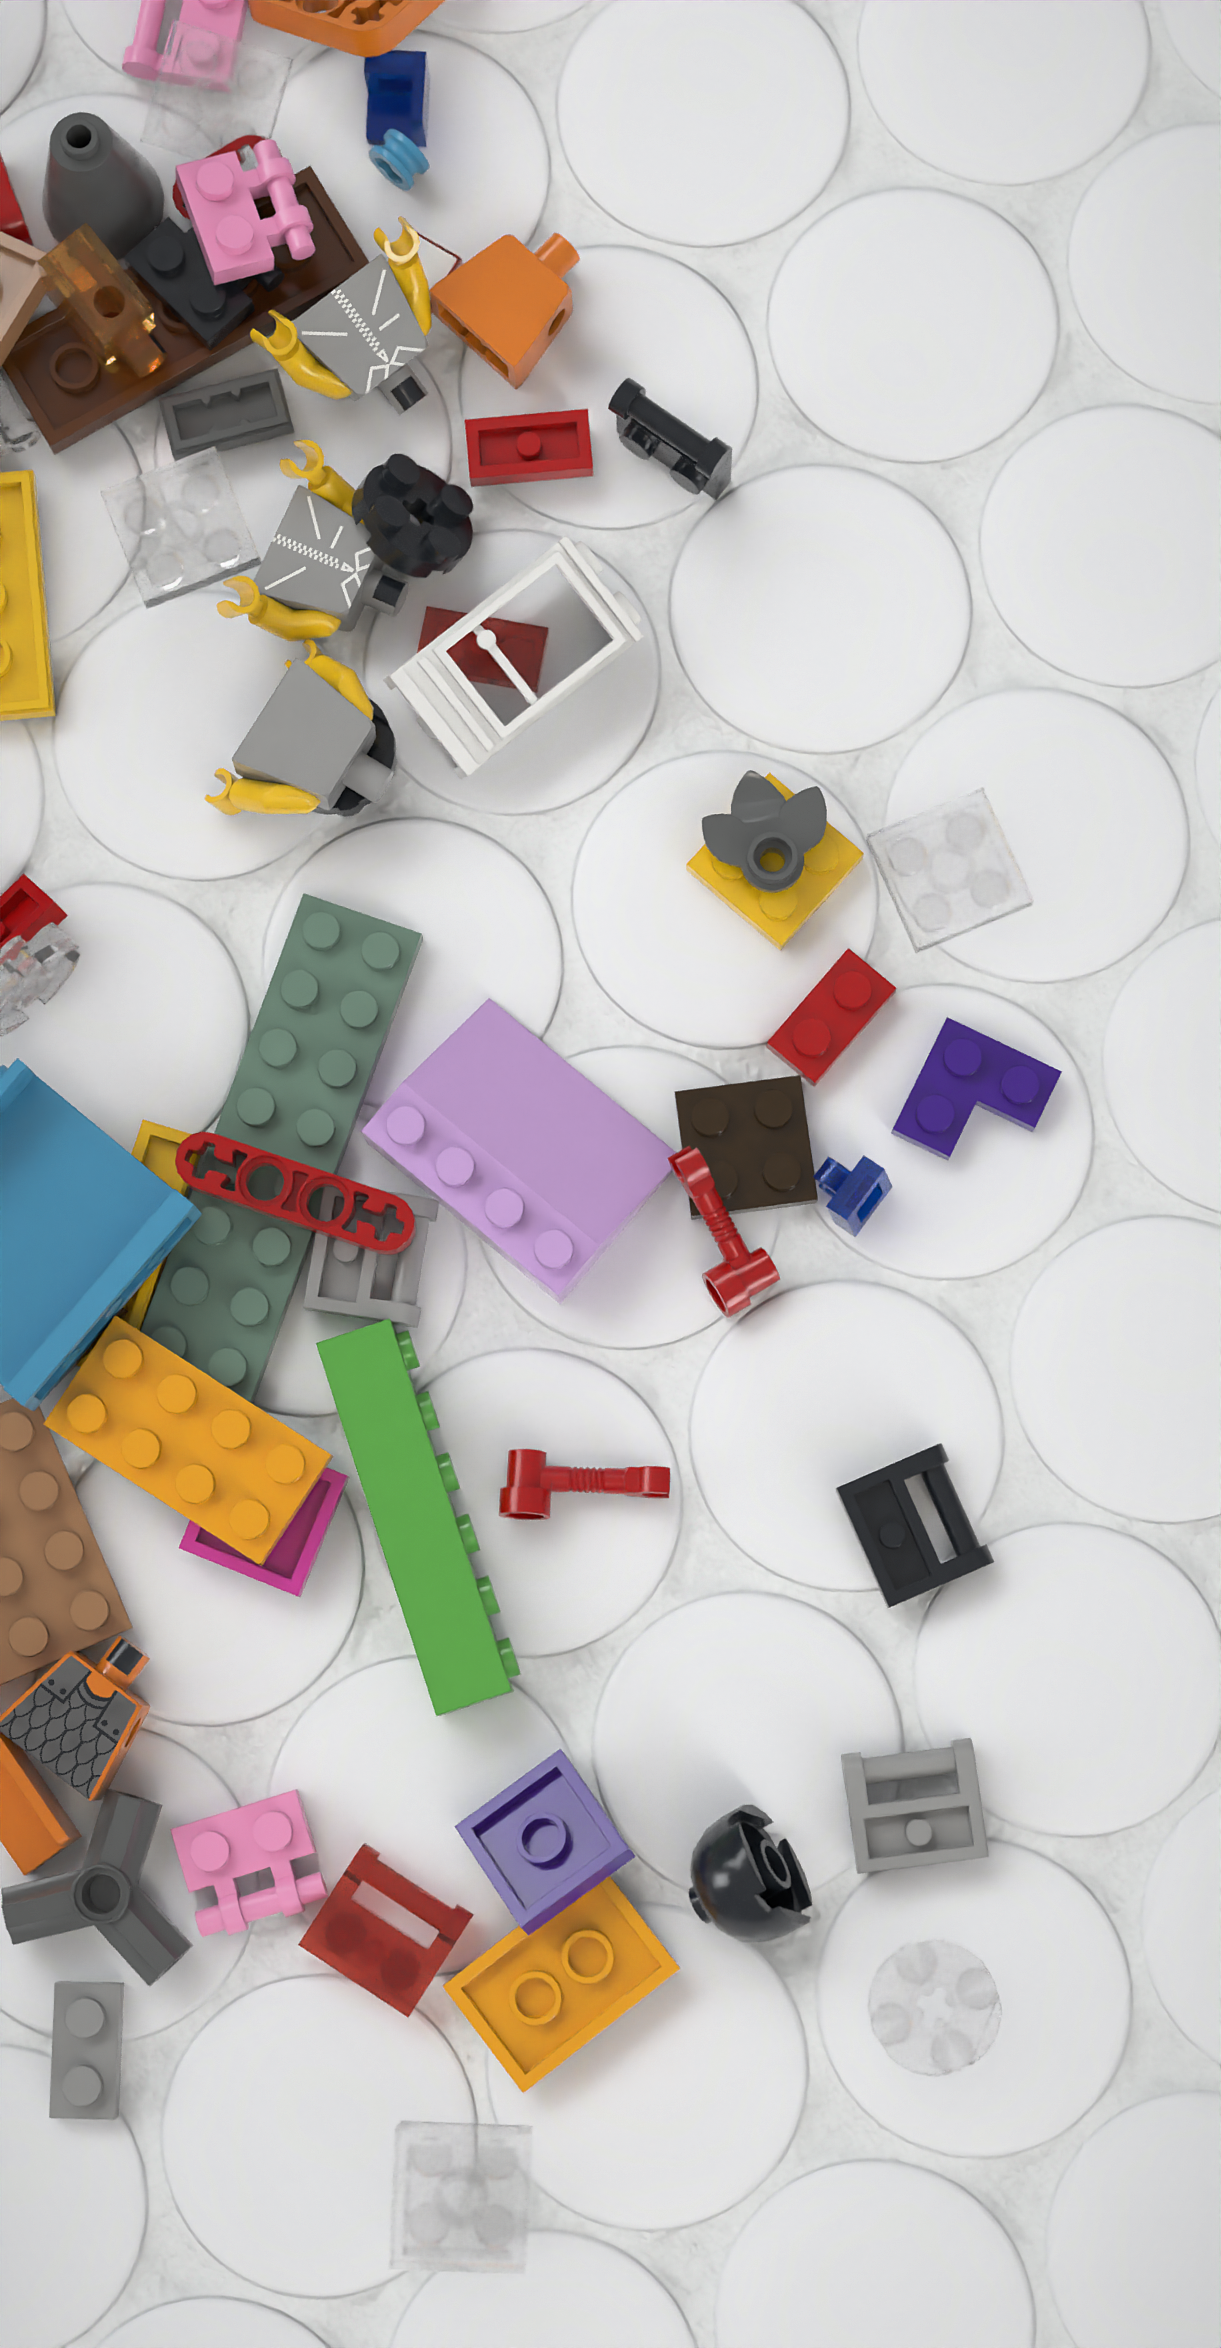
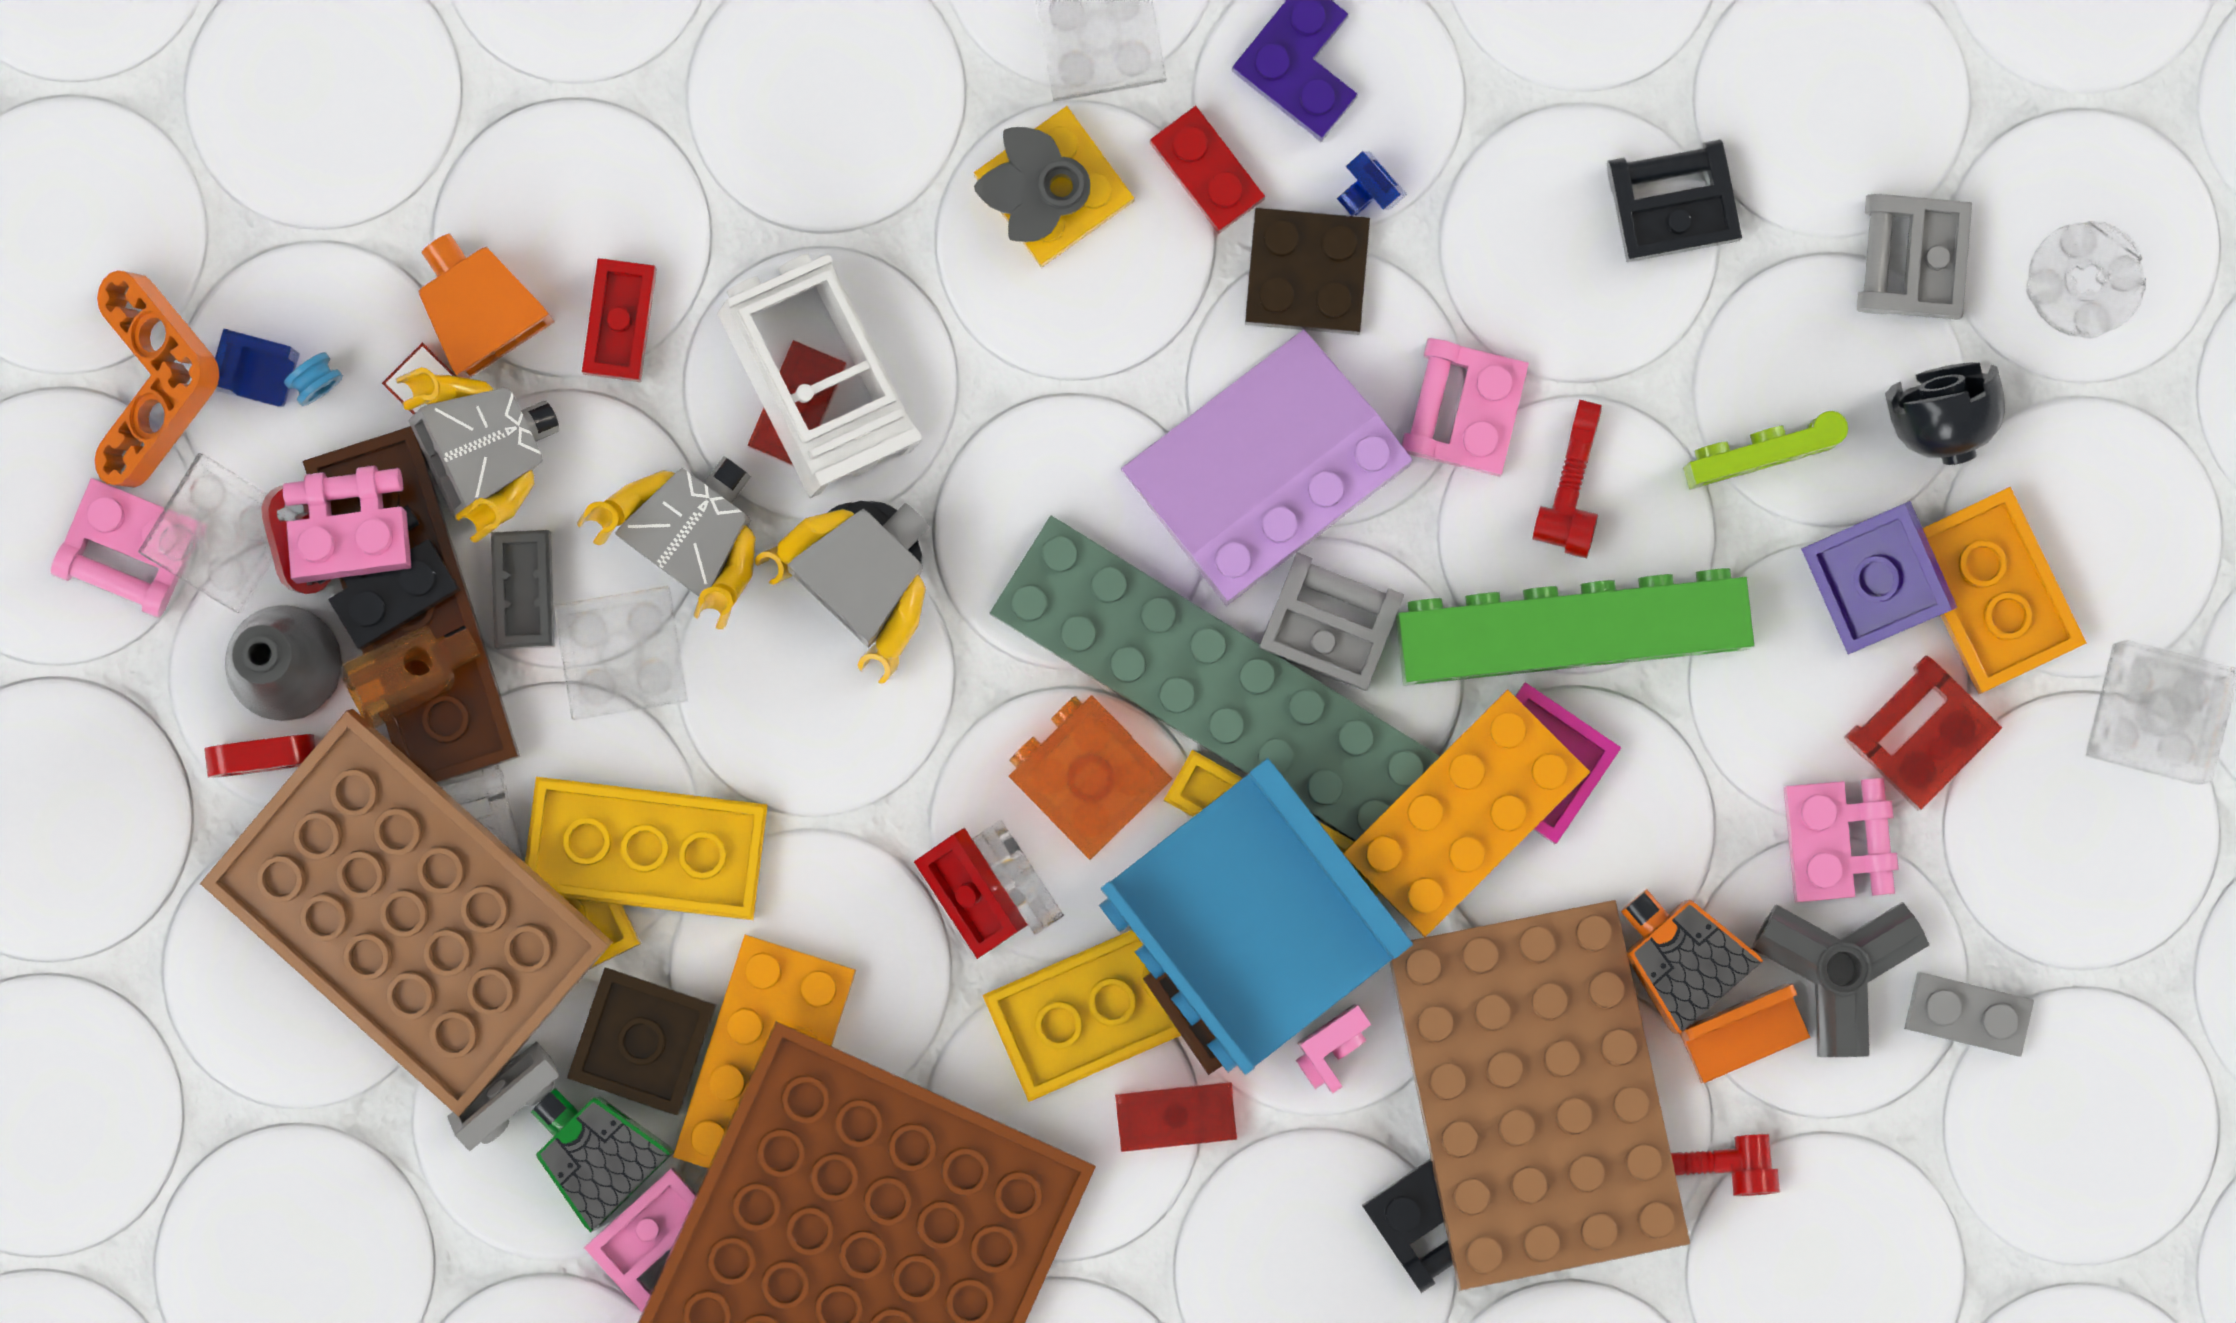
camera: 85 degrees left, 5 degrees up
(153, 1034) = (1088, 775): none -> clear orange plate
(298, 1186) = (1271, 675): red beam -> none
(441, 508) = (660, 413): black plate -> none
(635, 1370) = (1483, 413): none -> bright pink plate
(654, 432) = (670, 175): black plate -> none
(662, 1687) = (1767, 450): none -> lime plate
(741, 1272) = (1418, 299): red brick -> none

